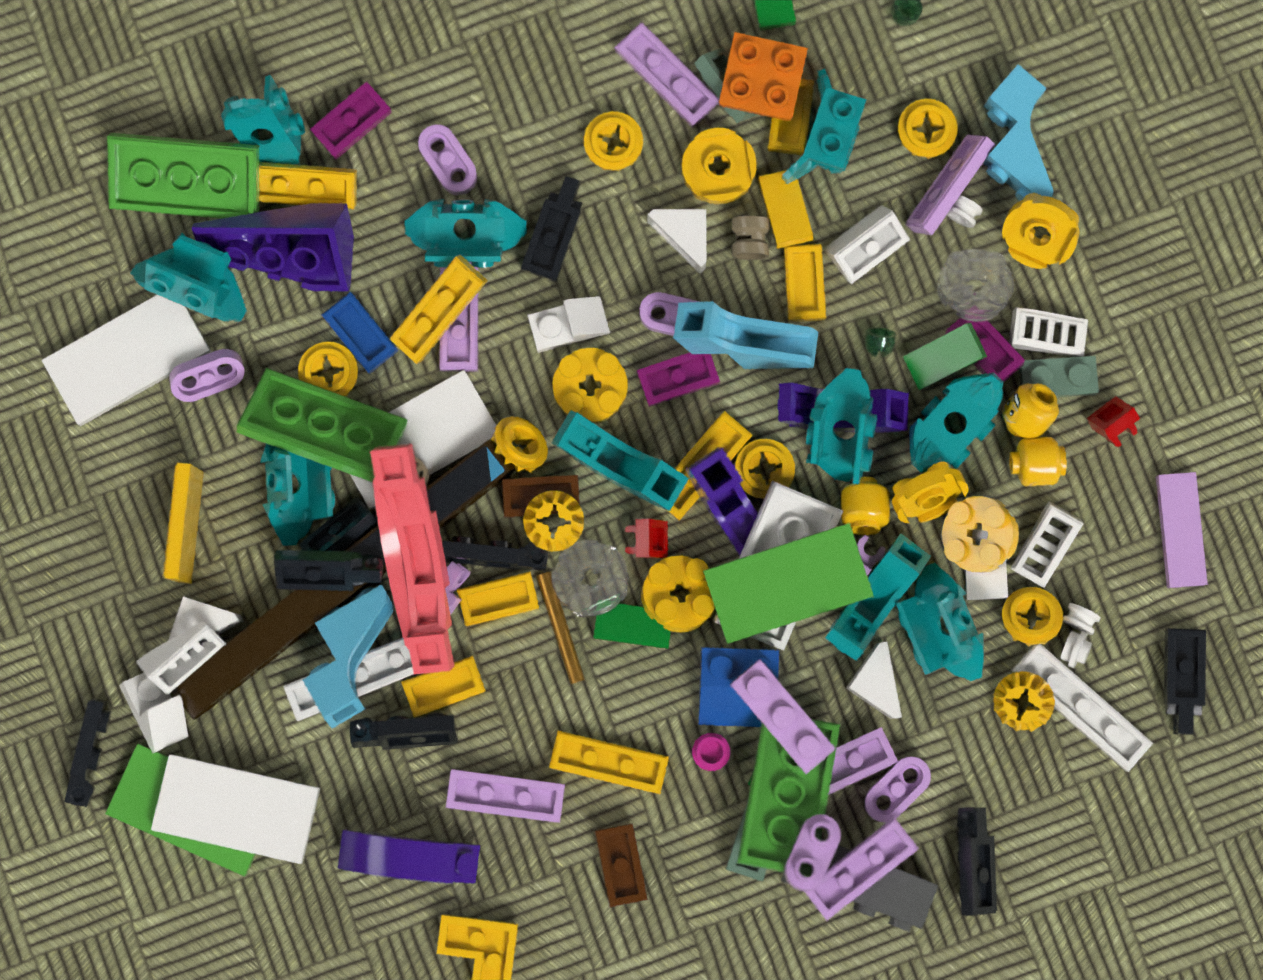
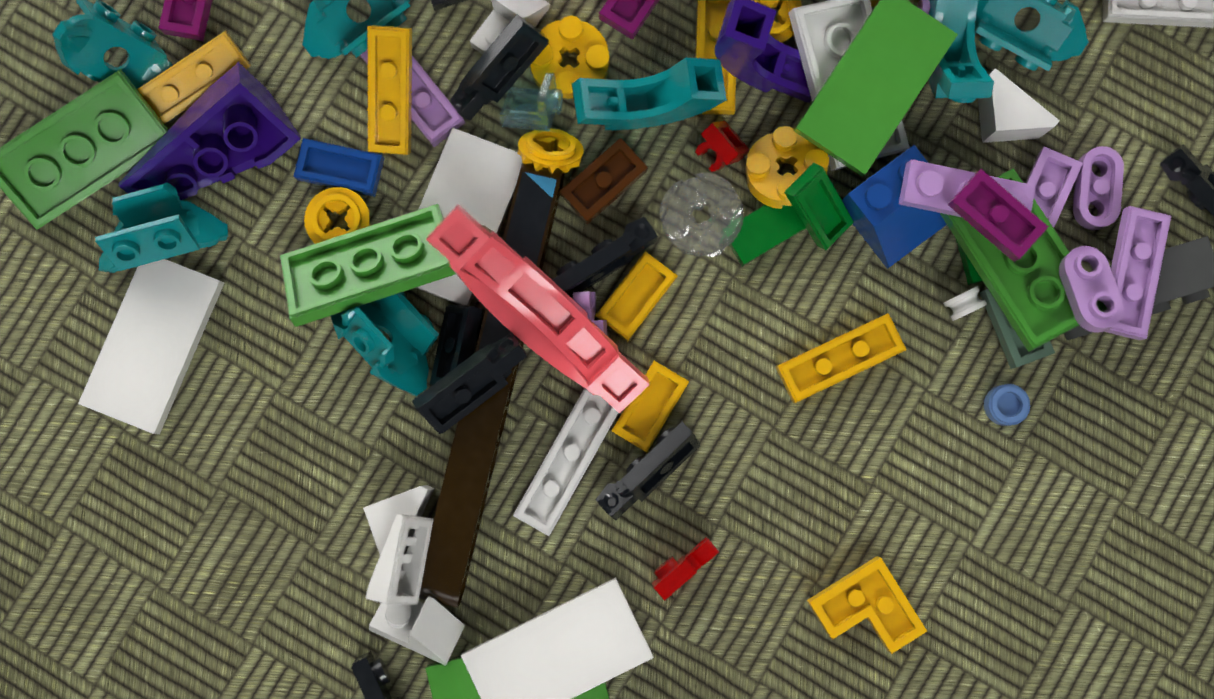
camera: 35 degrees left, 0 degrees up
(183, 523) = (311, 443): yellow tile -> none
(207, 375) = (236, 304): lavender plate -> none
(349, 635) = (536, 426): medium azure arch -> none
(362, 819) = (674, 573): none -> red plate
(408, 857) = (741, 579): dark purple arch -> none
(505, 795) = (779, 456): lavender plate -> none
(530, 354) = (499, 67): none -> black hinge
(532, 401) = (532, 107): none -> clear light blue bracket
(541, 507) = (630, 209): yellow gear -> none
(560, 628) = (708, 279): pearl gold bar -> none
(621, 865) = (924, 435): reddish brown plate -> none
(677, 640) = (819, 206): none -> green tile
(701, 892) = (1007, 405): none -> medium blue tile
(711, 751) = (919, 281): dark pink plate -> none
(729, 794) = (965, 303): none -> white bush
(783, 747) = (997, 215): none -> magenta plate
(1039, 694) = (1125, 25): yellow gear -> none

